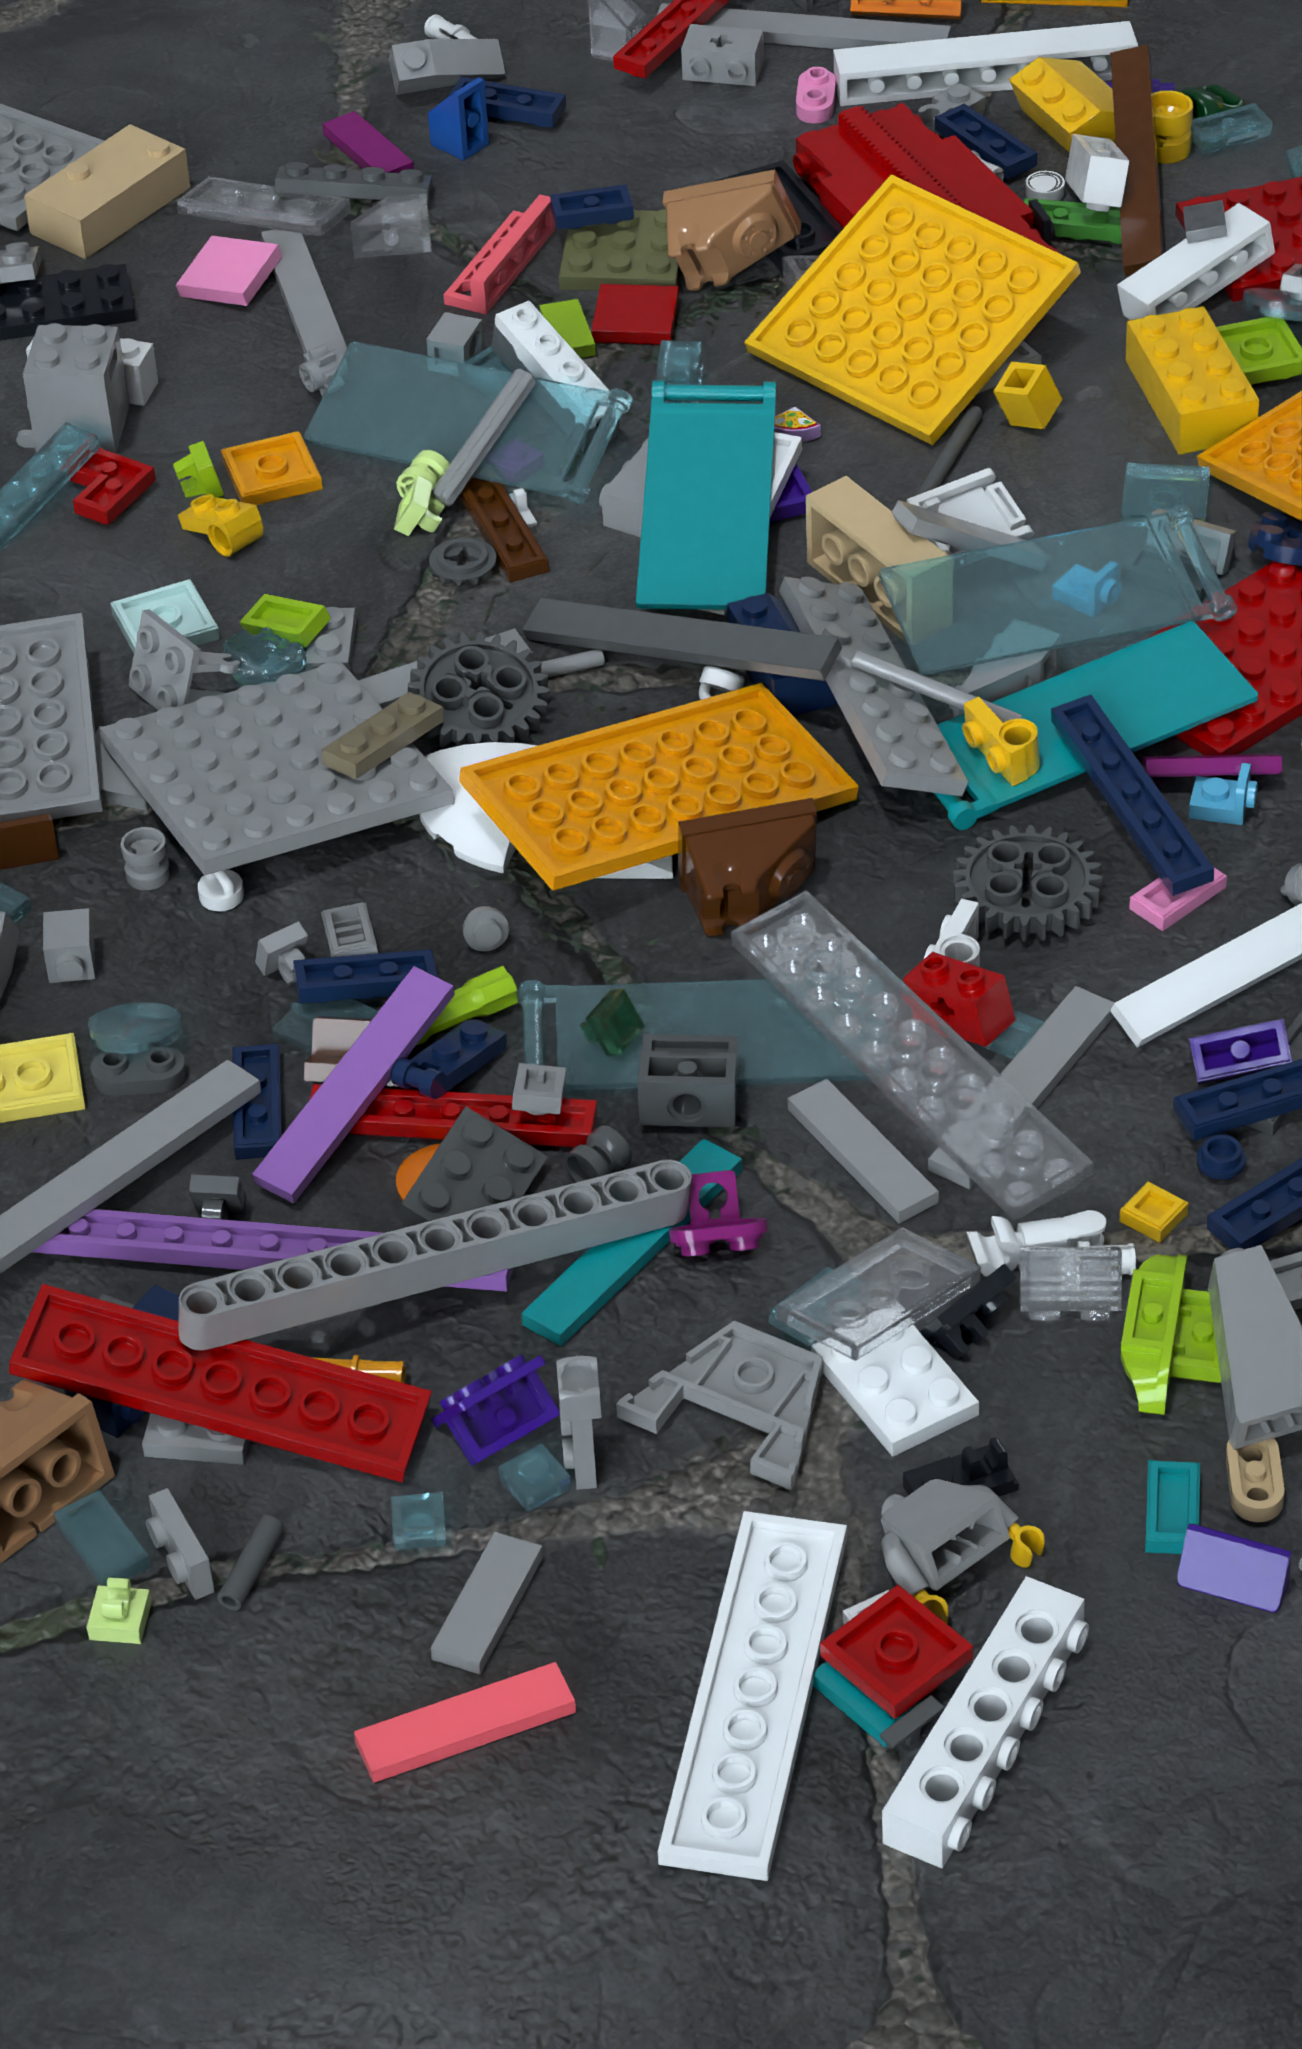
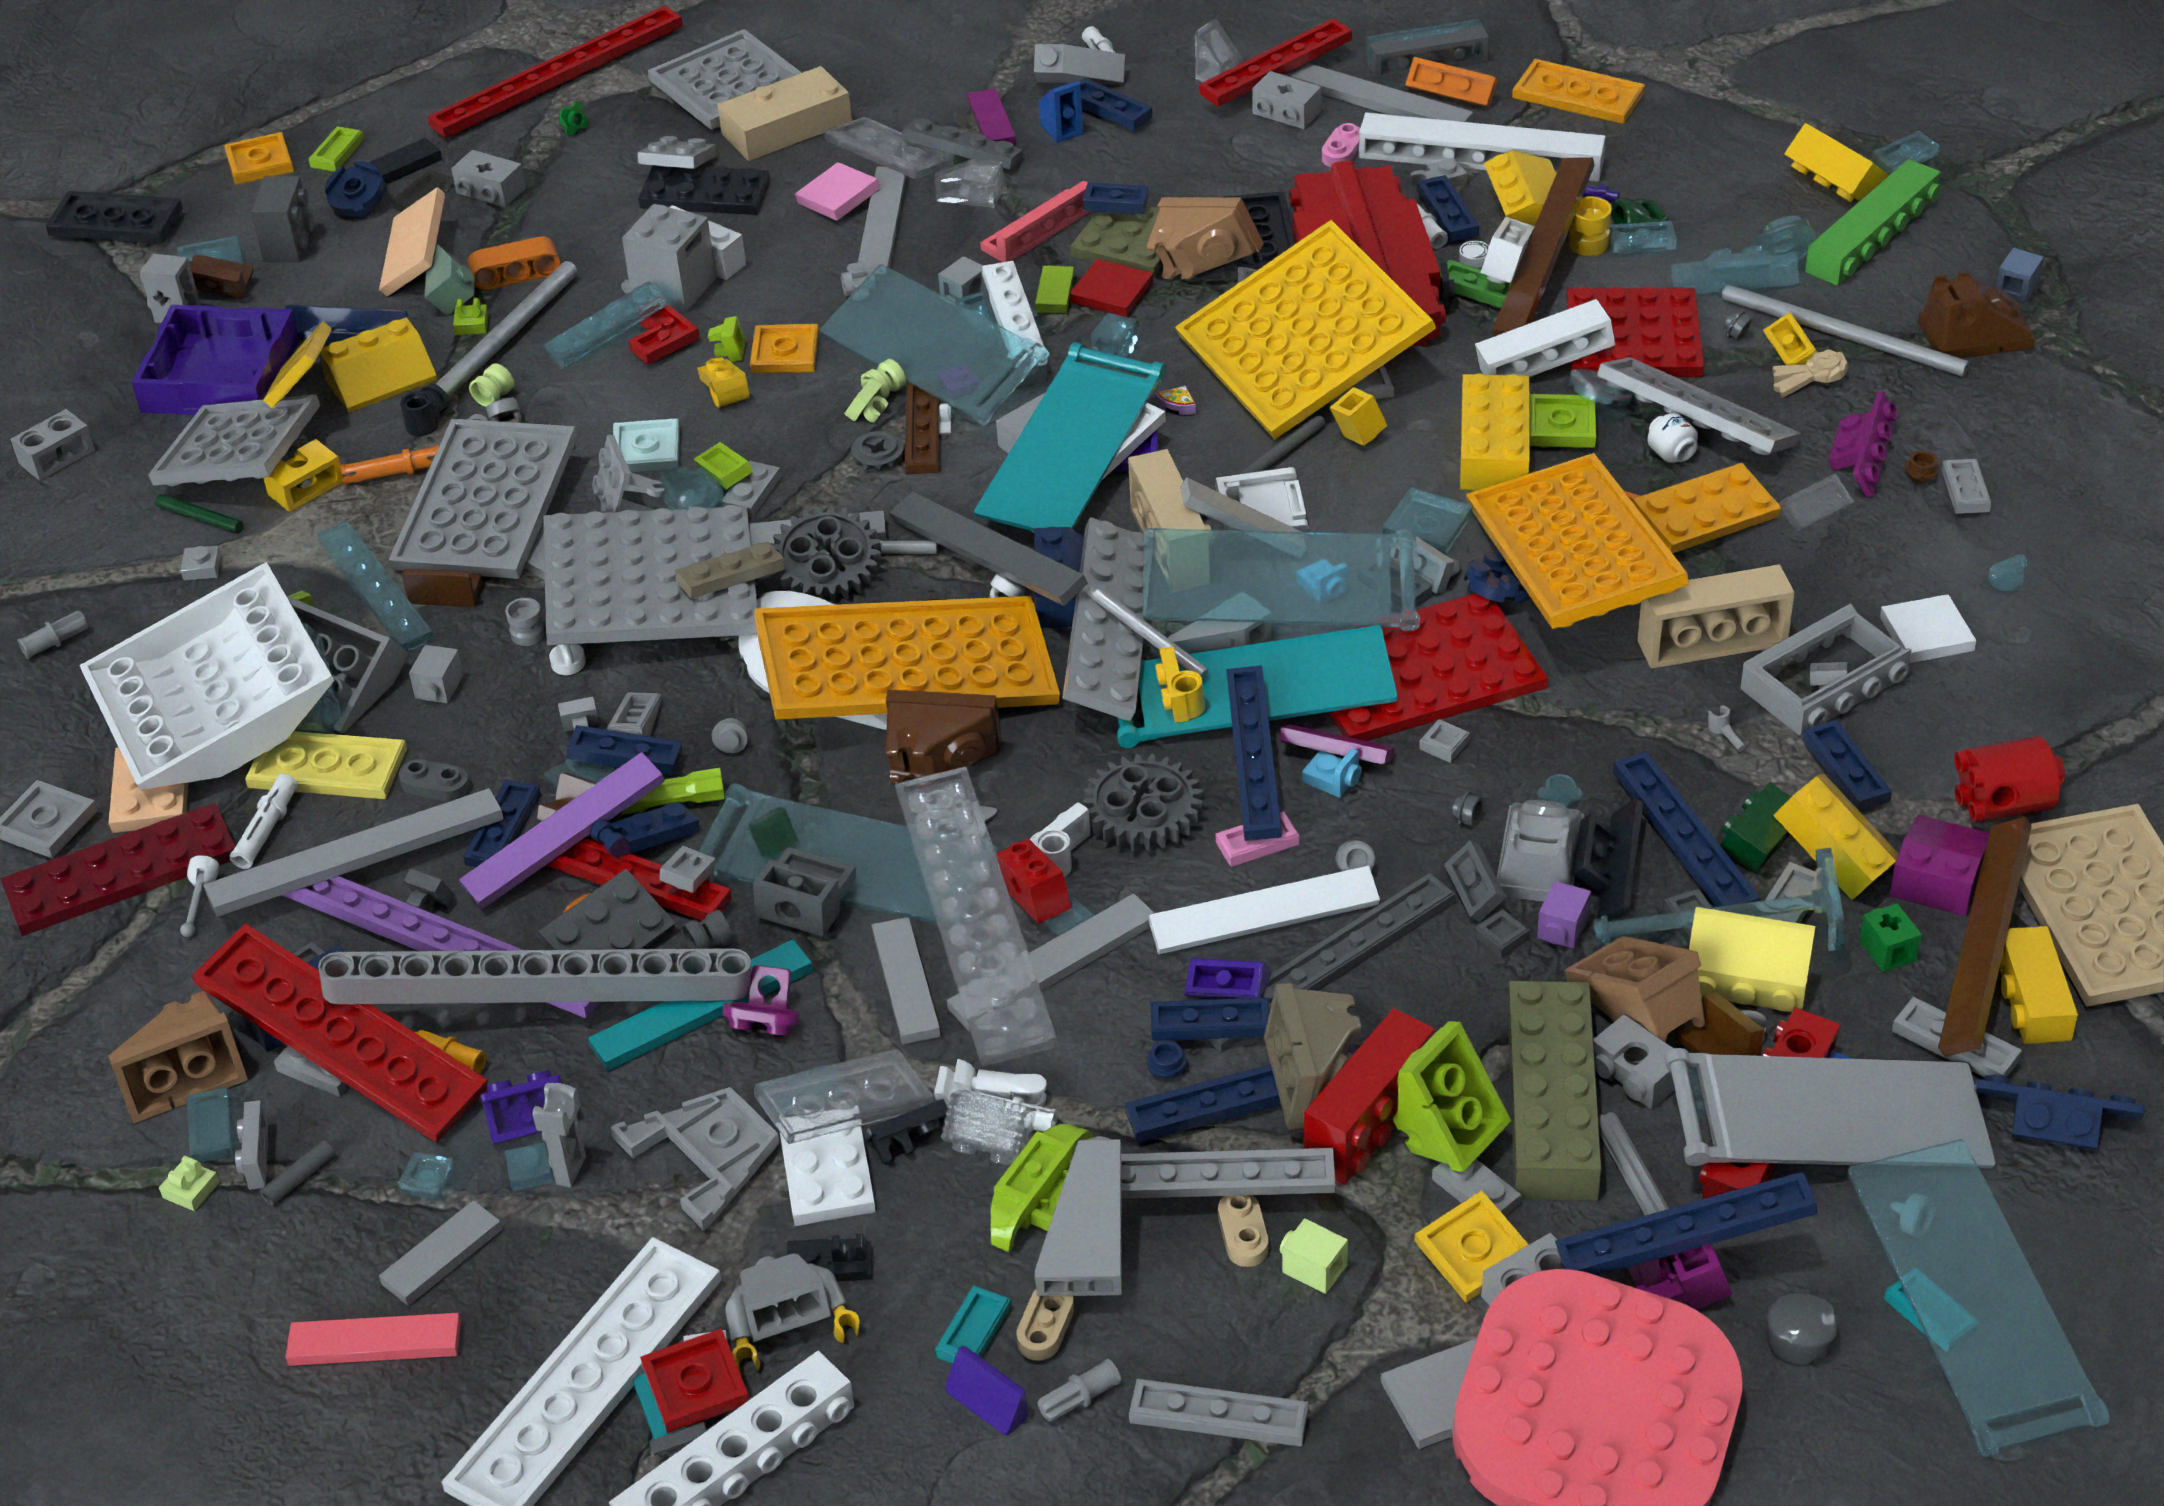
camera: 20 degrees right, 0 degrees up
(134, 1026) = (444, 744): clear light blue tile -> none
(483, 437) = (933, 358): light grey axle -> none
(1153, 1212) = (1093, 1088): yellow tile -> none
(1205, 221) = (1560, 308): flat silver tile -> none

